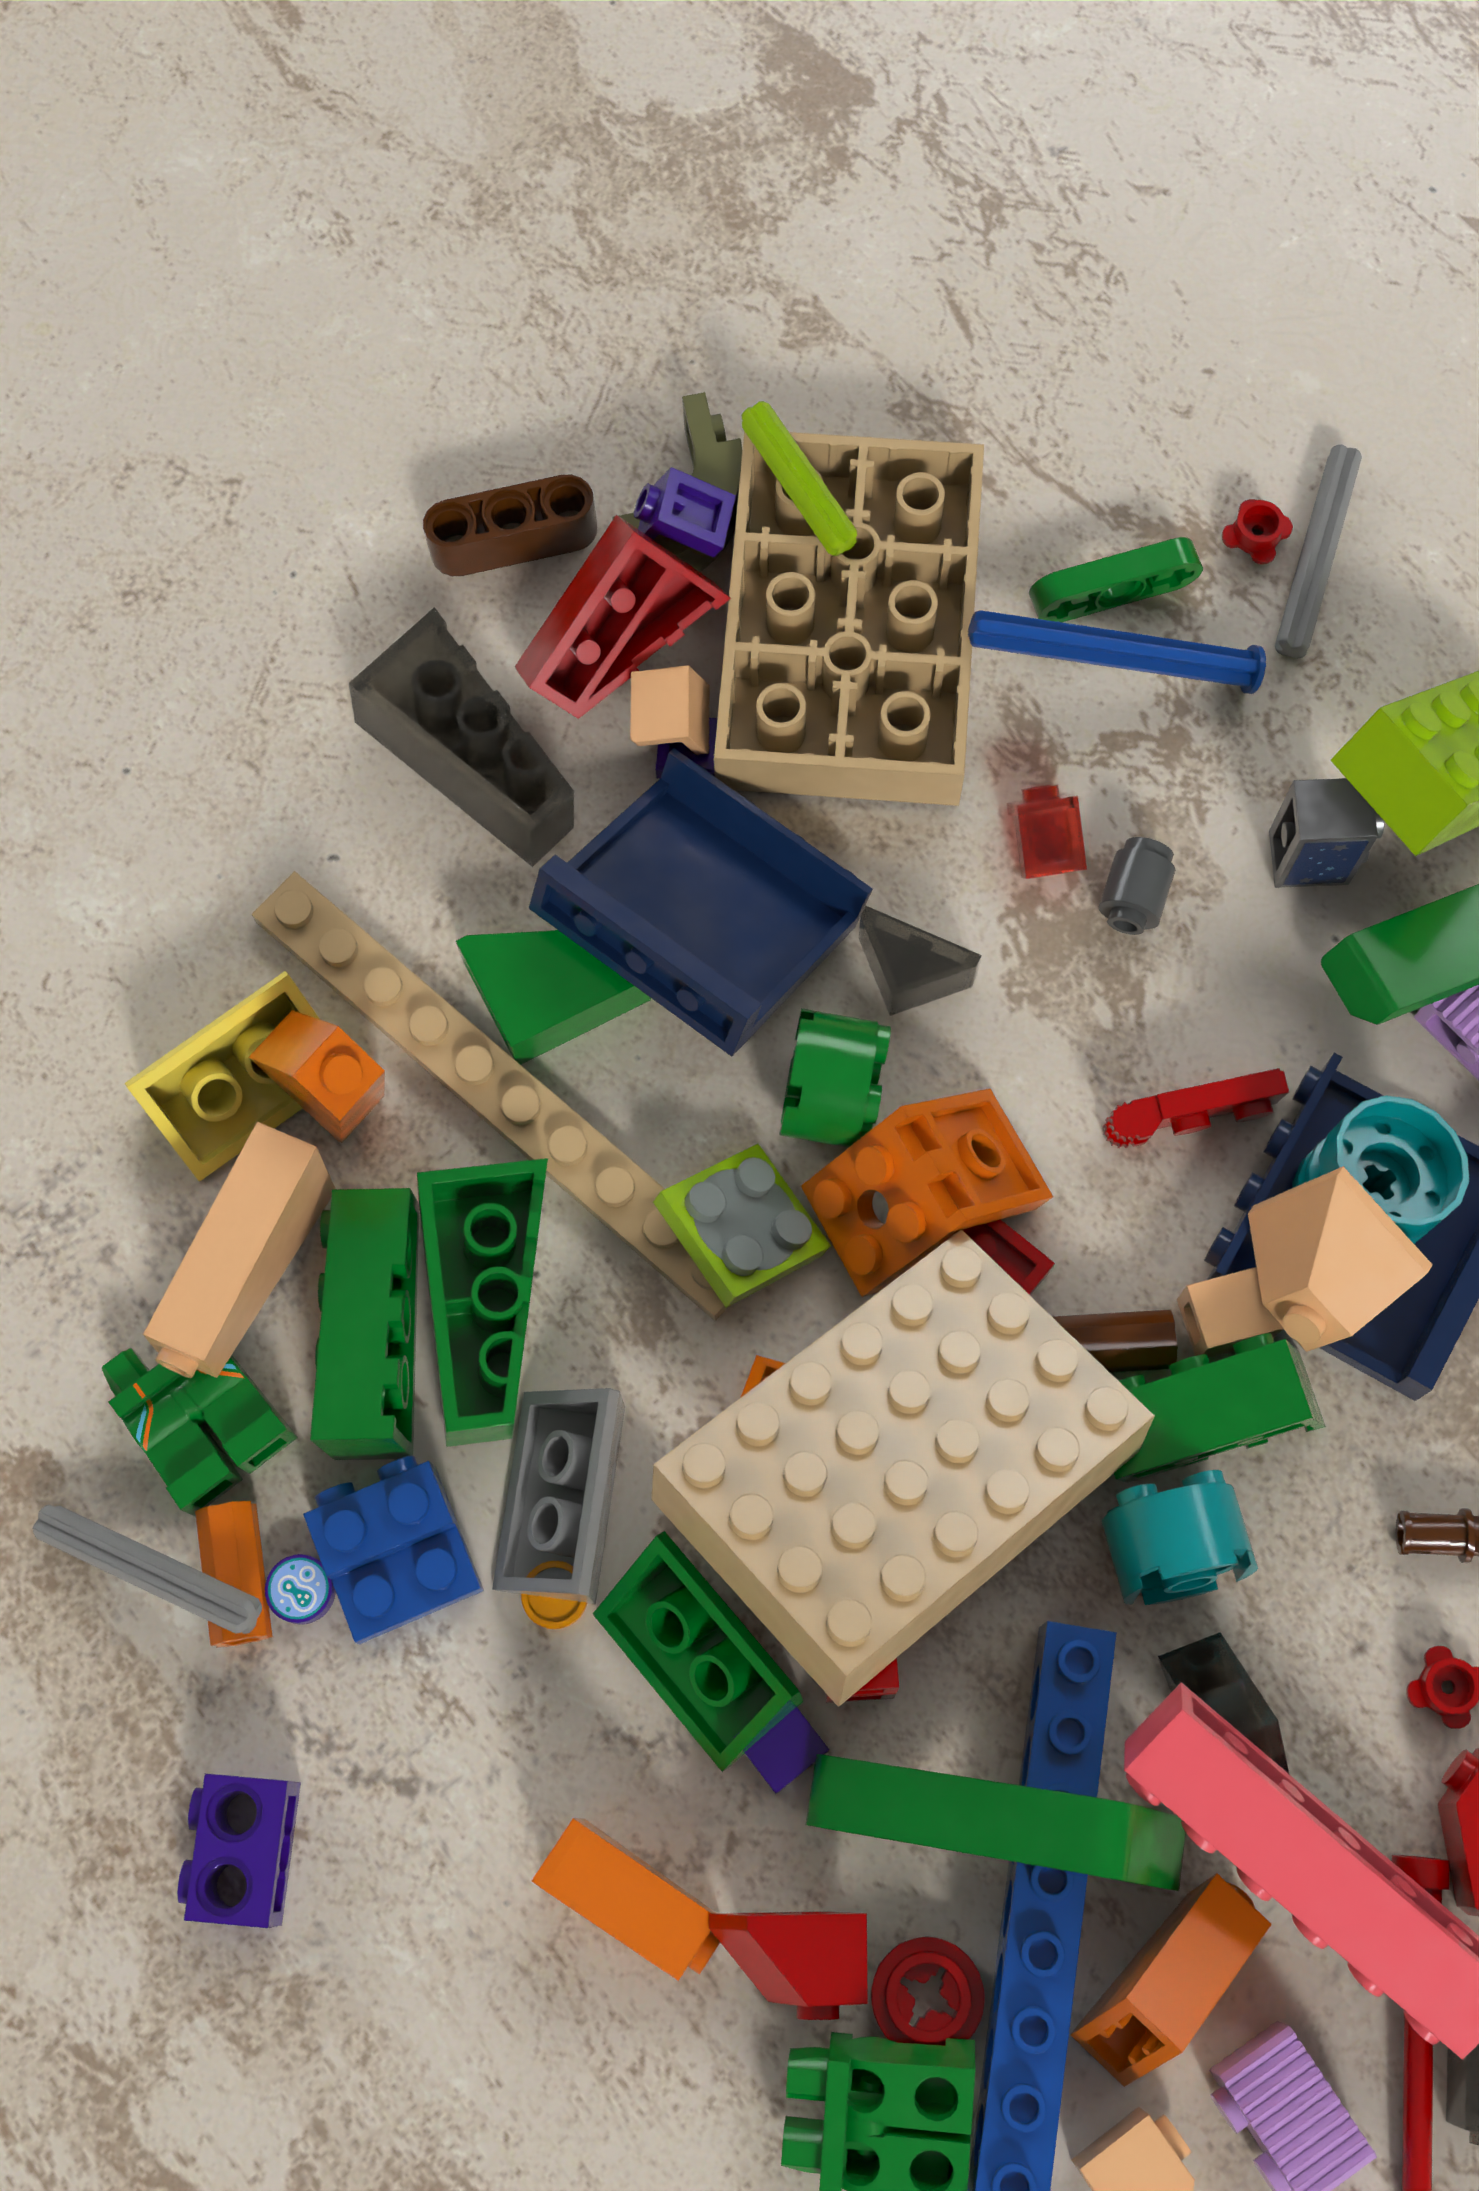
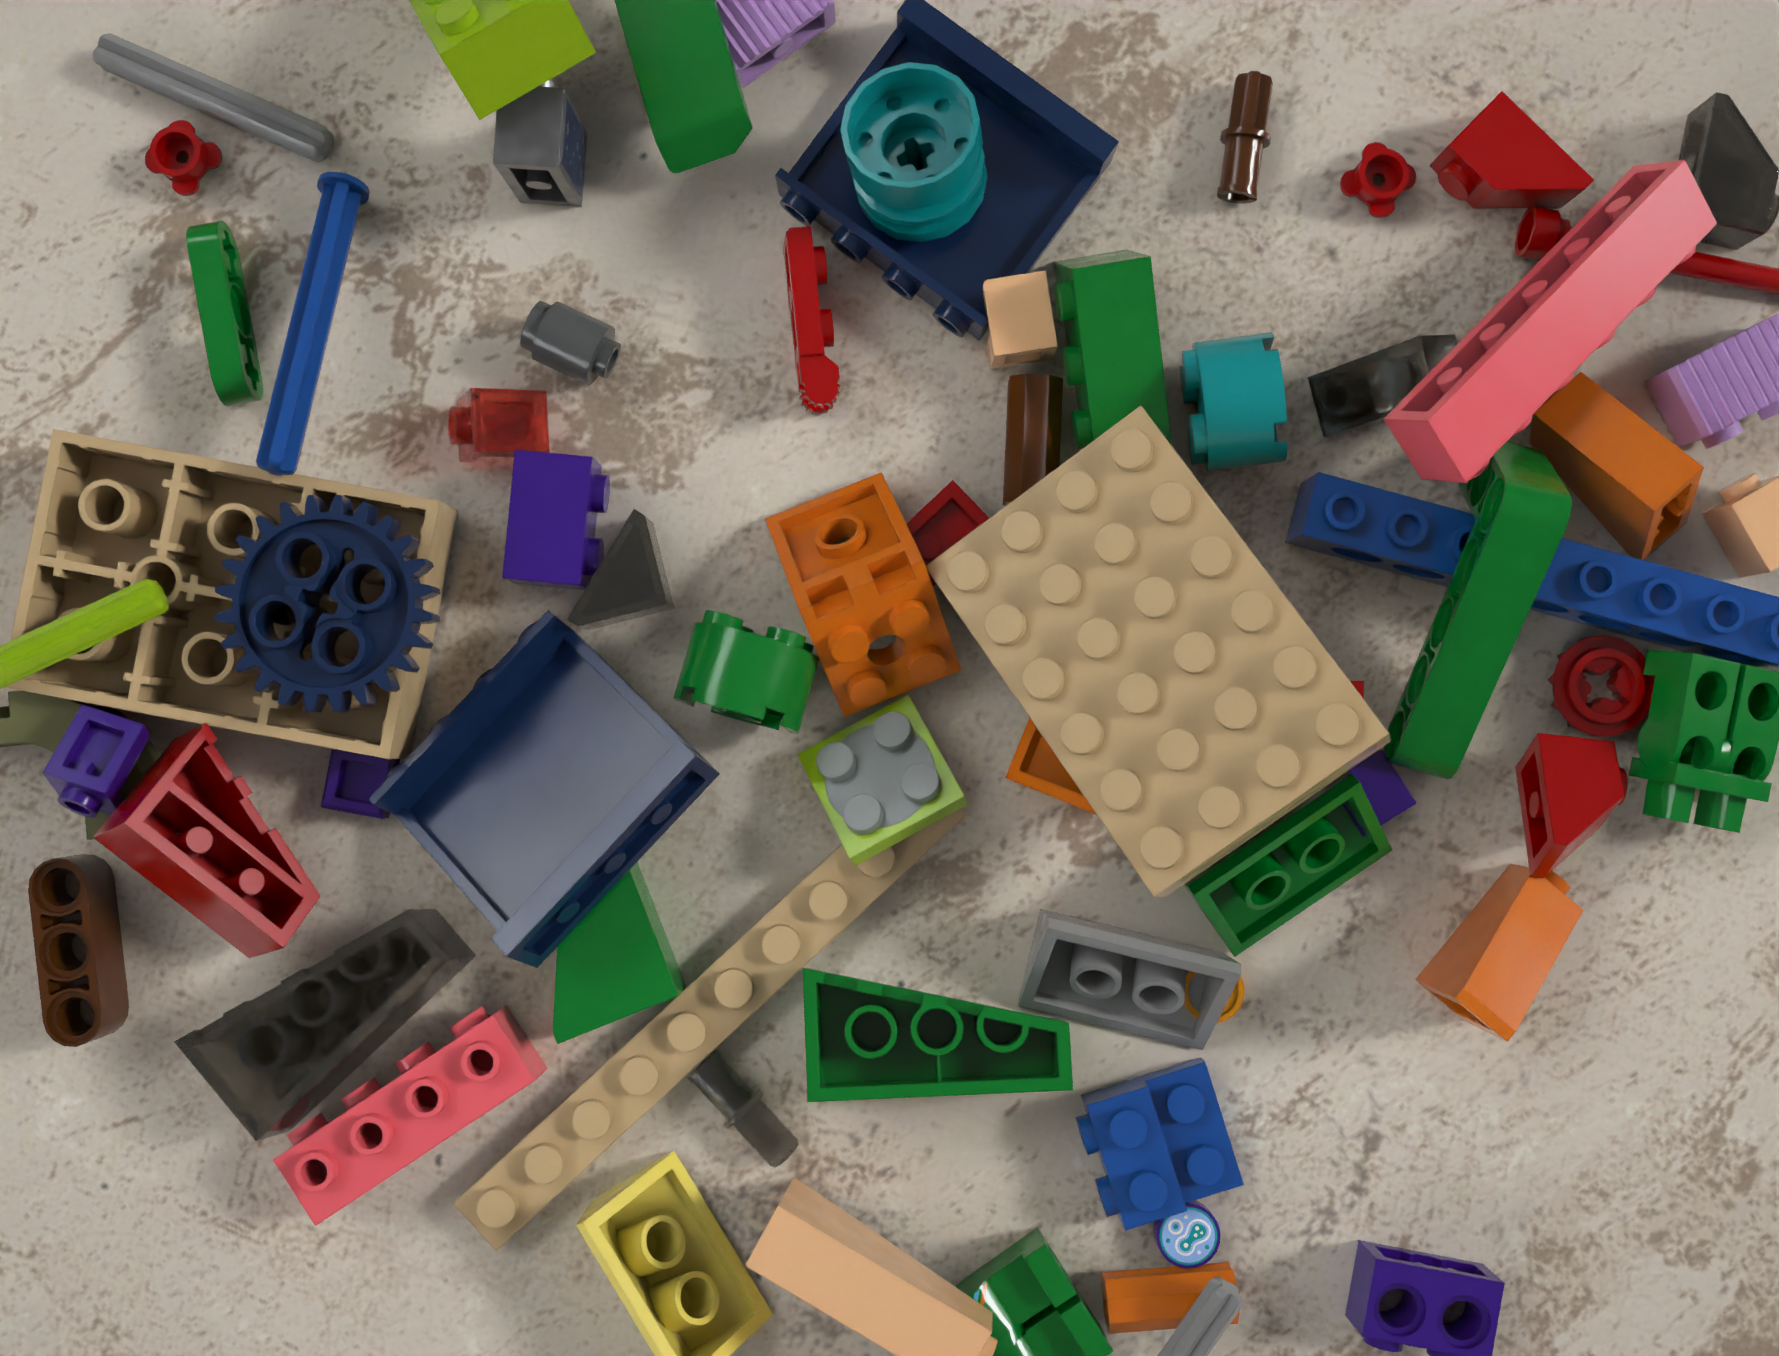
camera: 90 degrees left, 15 degrees up
(322, 1072) = (690, 1198): orange slope -> none
(367, 1325) = (949, 1158): green wedge -> none
(381, 824) = (410, 1114): none -> coral brick
(401, 1129) = (744, 1110): none -> clear smoke axle
(670, 708) = (322, 798): light nougat panel -> none
(836, 733) = (273, 579): none -> dark blue gear
(962, 888) = (554, 520): none -> dark purple brick
(1330, 1258) = (995, 214): light nougat slope -> none

